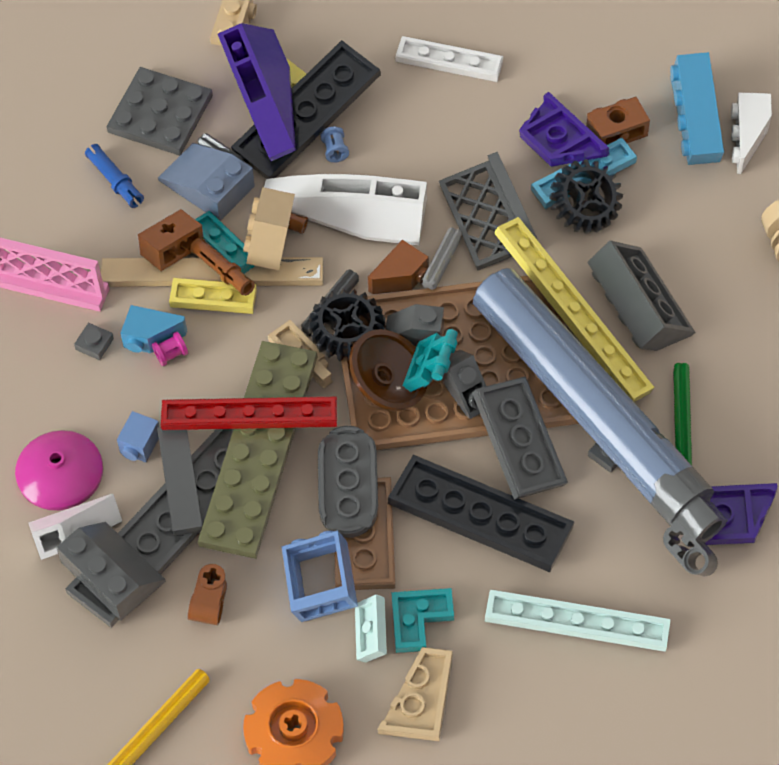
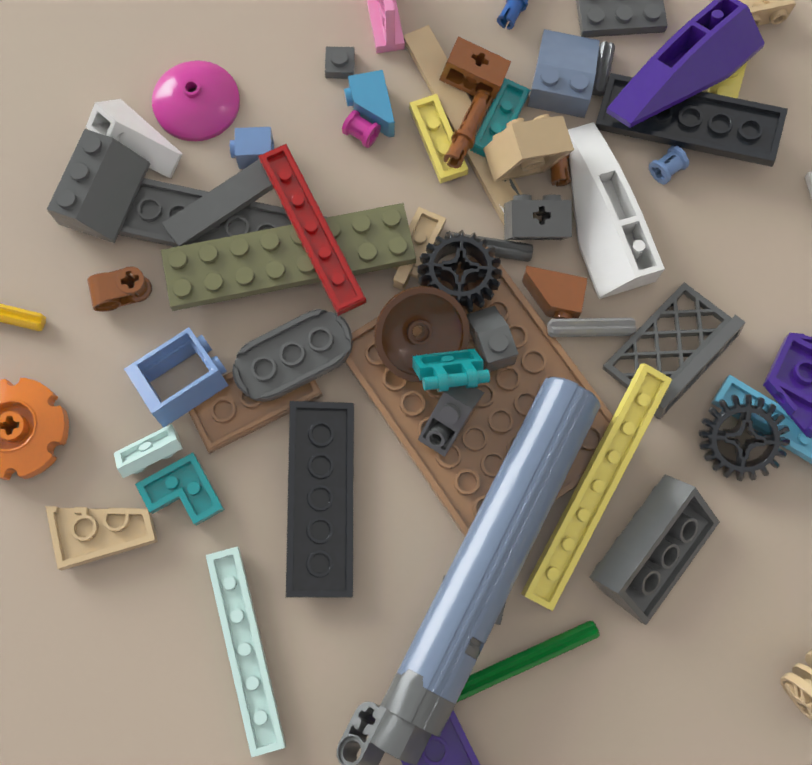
camera: 60 degrees right, 15 degrees up
(331, 252) = (521, 225): none -> dark grey brick
(519, 437) = (416, 499): dark grey tile -> none

